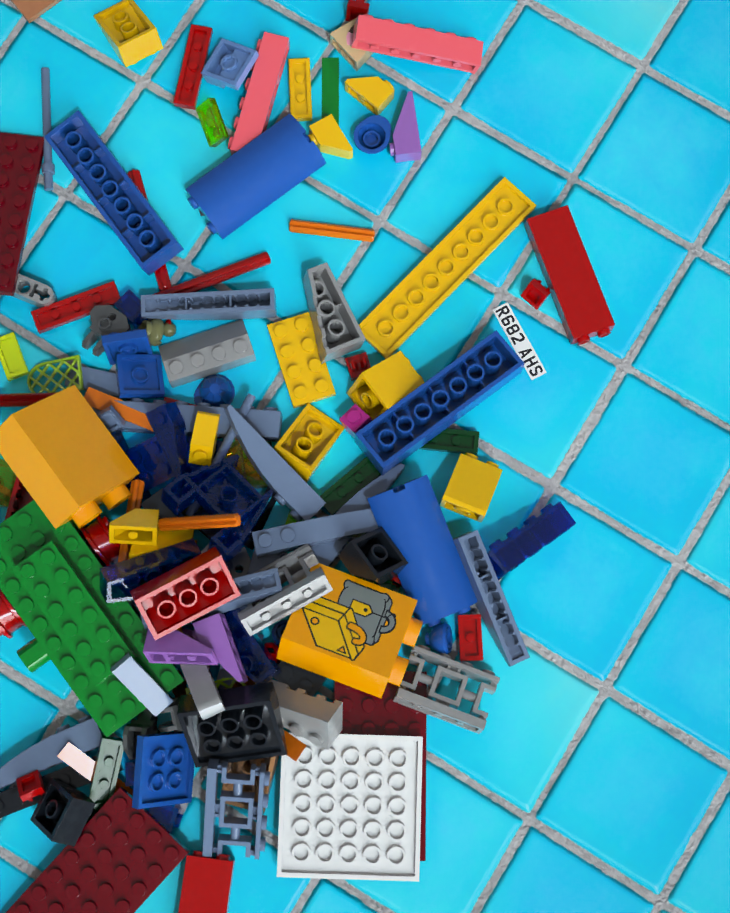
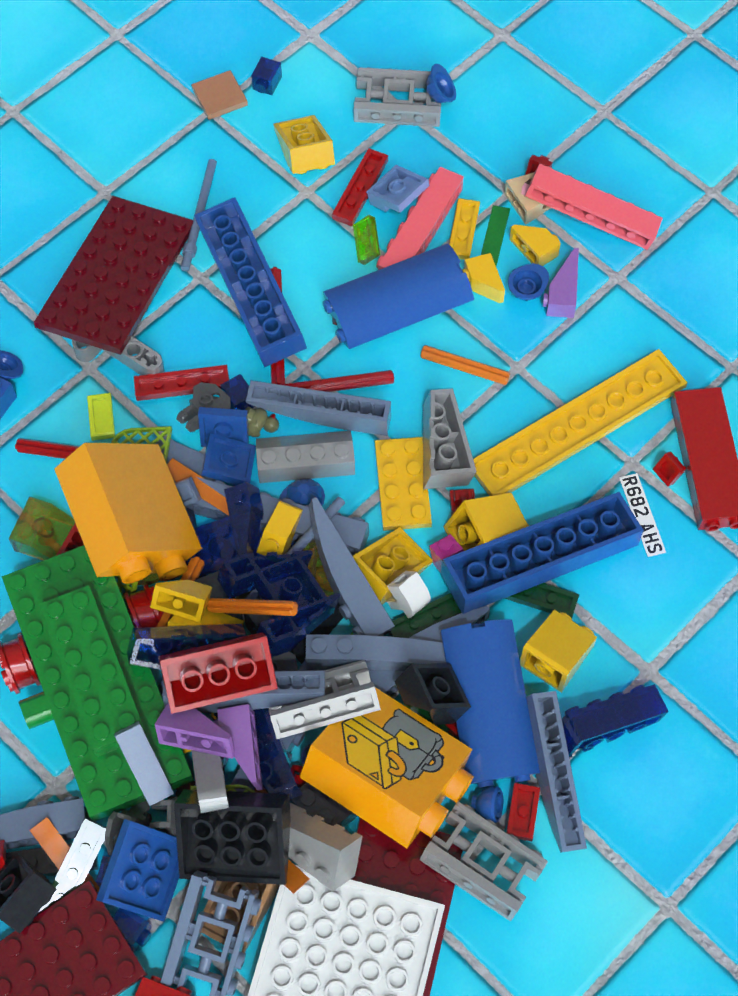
camera: 15 degrees right, 15 degrees down
(330, 469) = (408, 593): none -> white brick

